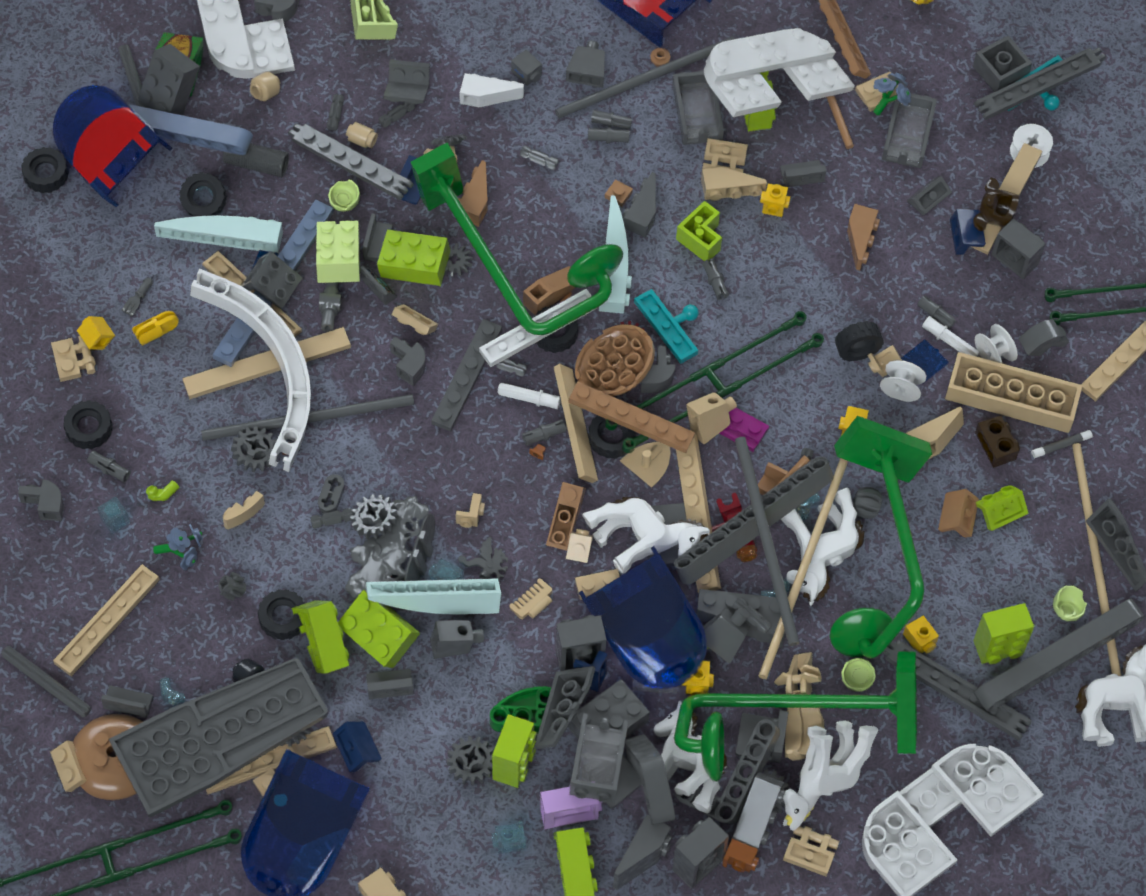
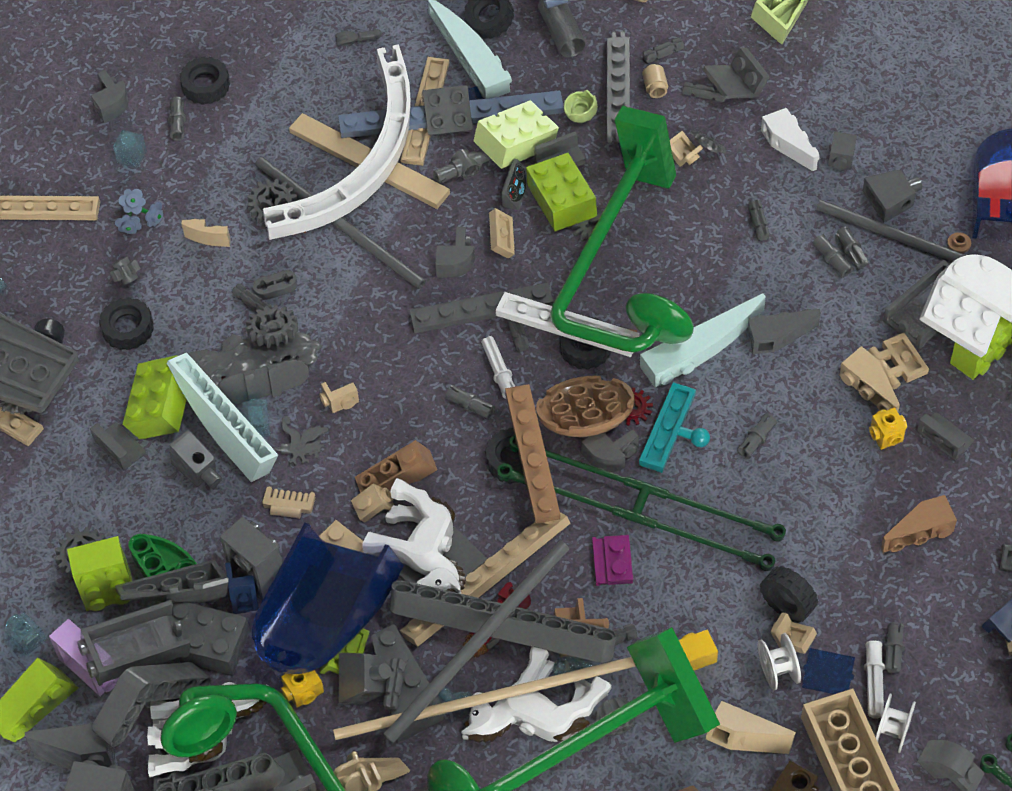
camera: 60 degrees right, 5 degrees down
(66, 359) = (257, 30): tan plate -> none
(95, 332) = (293, 29): yellow brick -> none
(155, 327) = (335, 64): yellow arm -> none
(162, 494) = (181, 170): lime arm -> none
(323, 635) = (118, 359): lime wedge -> none
(356, 745) = (39, 458): dark blue panel -> none
(475, 195) = (667, 199): medium nougat slope -> none
(538, 451) = (448, 410): dark orange piece -> none
(547, 291) = (610, 308): medium nougat slope -> none
(575, 425) = (475, 439): tan tile -> none
(620, 191) = (779, 302): medium nougat plate -> none
(648, 461) = (509, 505): tan shield -> none
(698, 234) = (794, 384): lime brick -> none
(709, 415) = (593, 517): tan torso -> none

